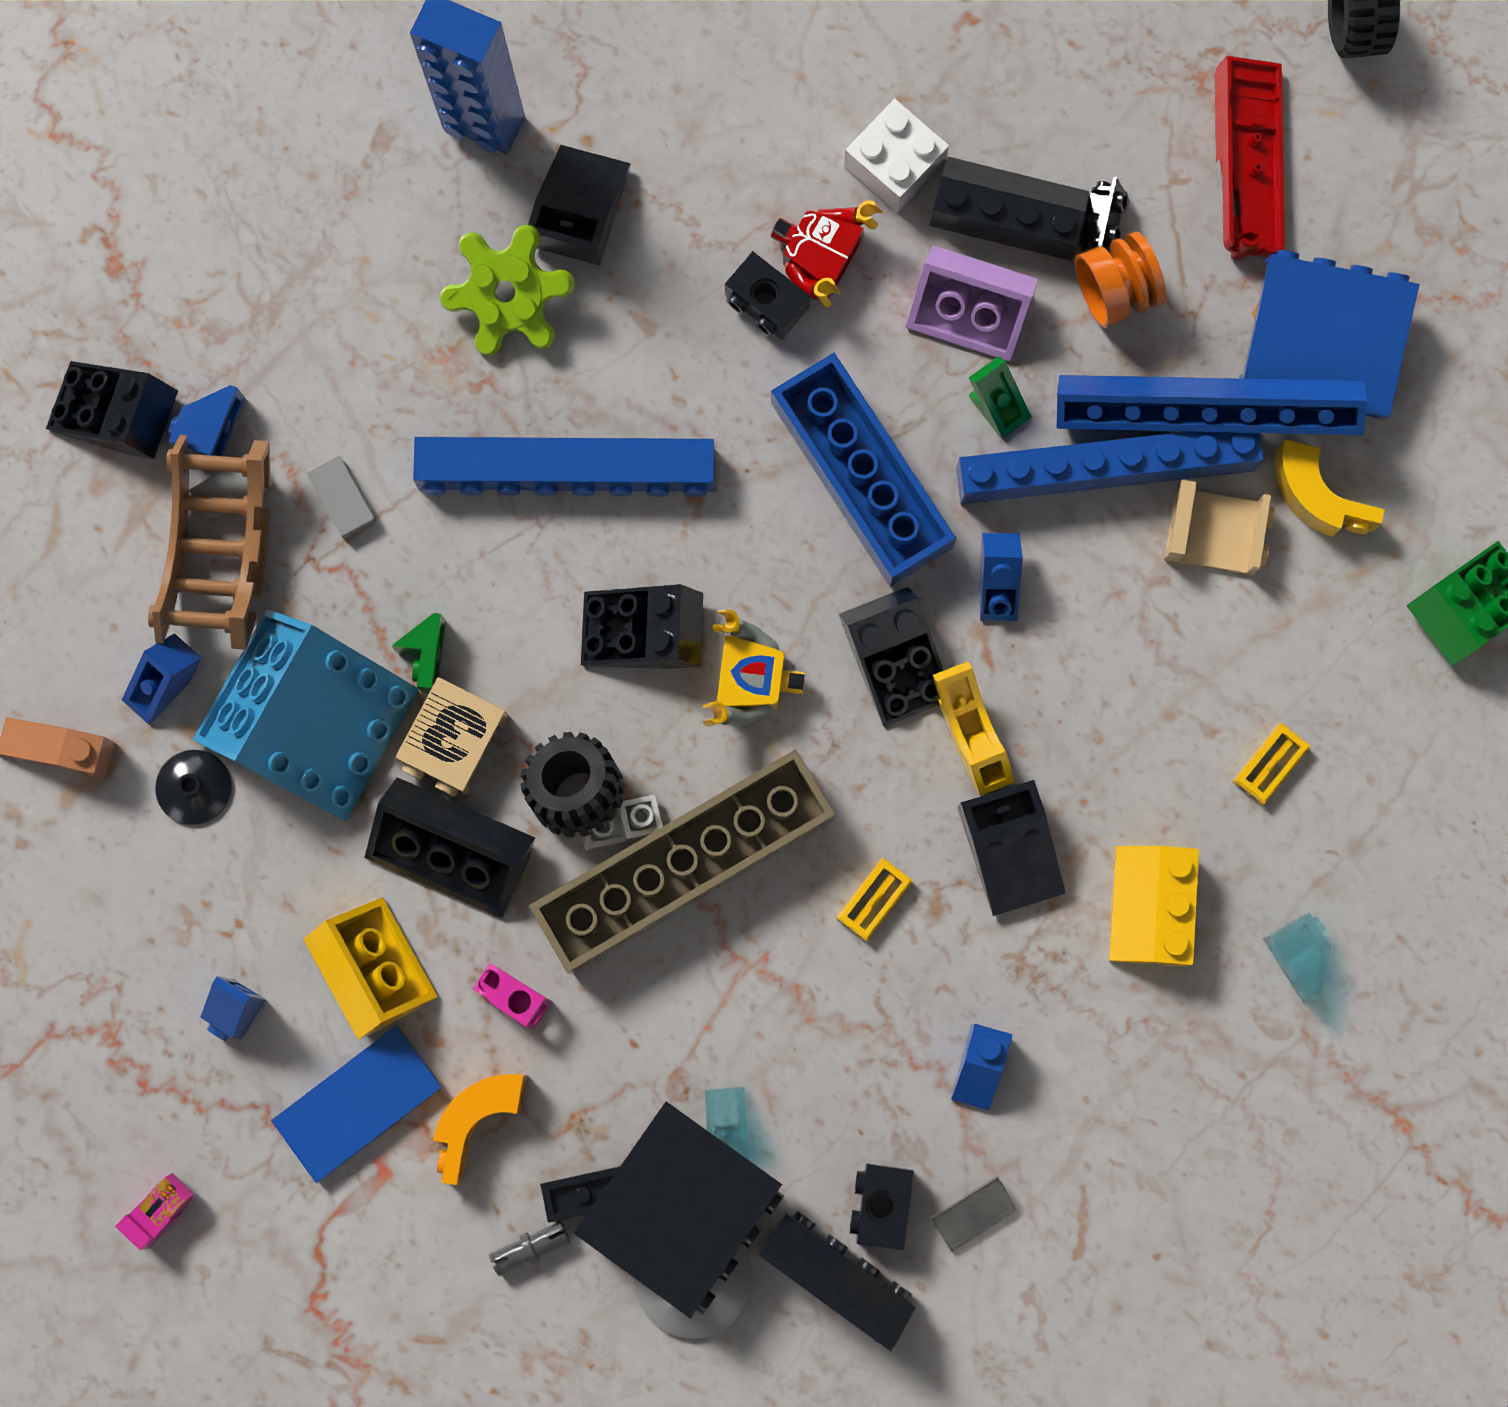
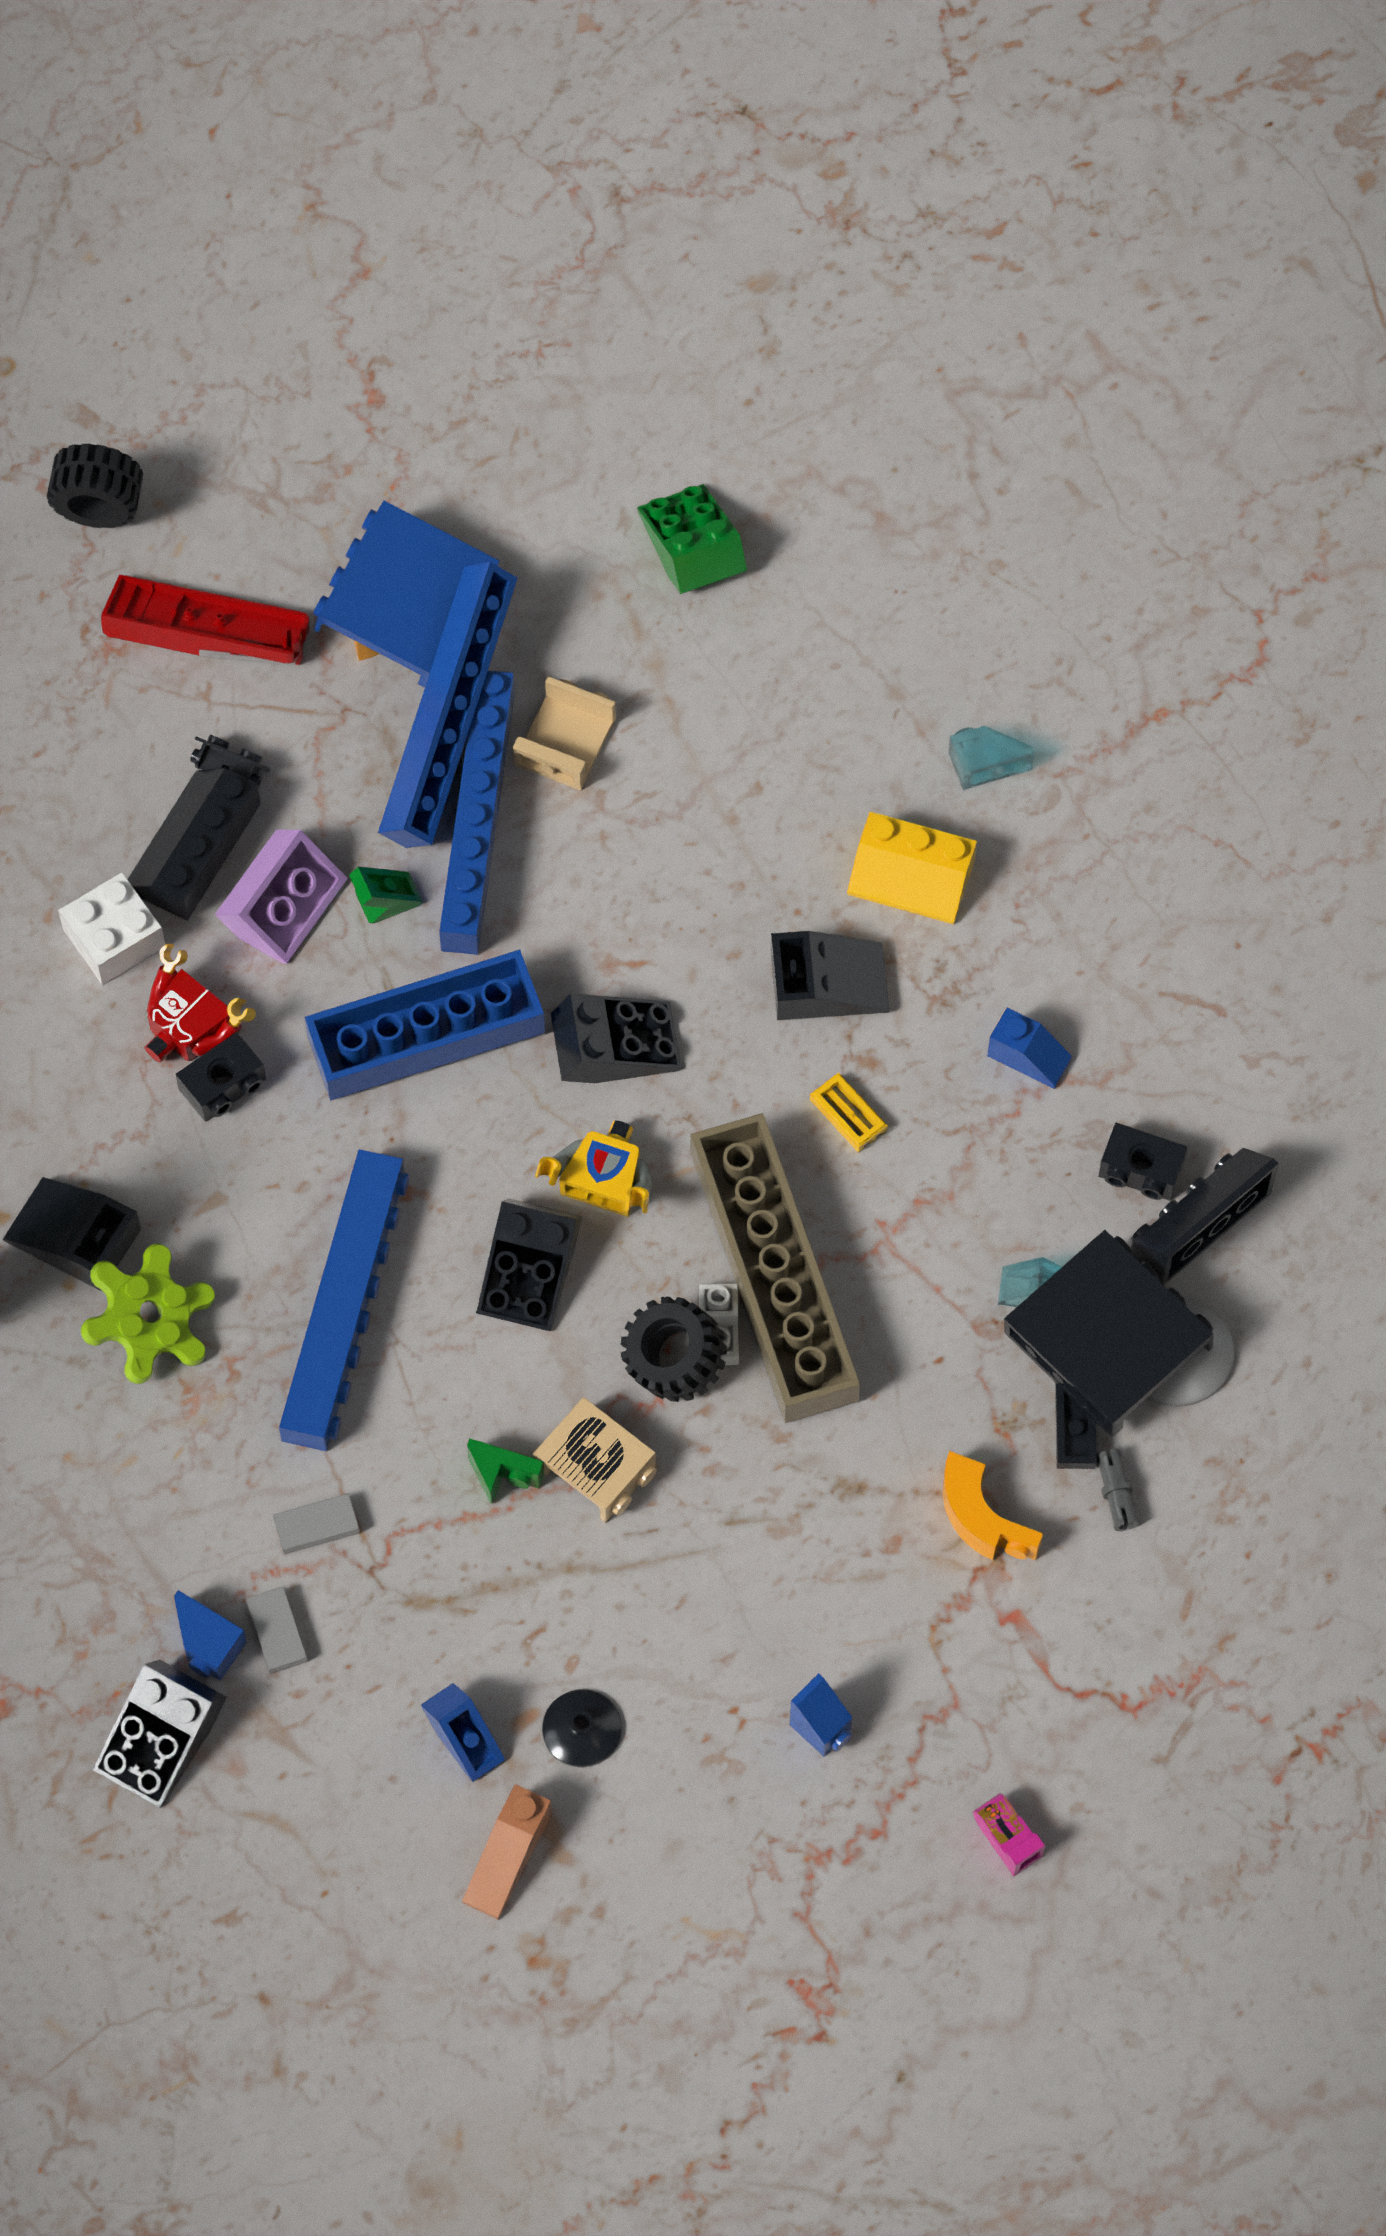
camera: 80 degrees left, 15 degrees down
(251, 549) = (350, 1616): medium nougat fence -> none
(306, 713) = (527, 1593): dark azure bracket -> none
(356, 1104) = (941, 1626): blue tile -> none
(369, 967) = (810, 1584): yellow slope -> none
(448, 847) = (706, 1484): black slope -> none
(512, 996) = (867, 1454): dark pink leg -> none
(972, 730) = (708, 987): yellow arch -> none
(973, 1213) = (1165, 1089): clear smoke slope -> none
(1000, 576) = (561, 929): blue slope -> none
(1120, 279) = (300, 755): orange wheel -> none
(1252, 788) = (787, 748): yellow tile -> none
(1312, 500) = (555, 649): yellow arch -> none

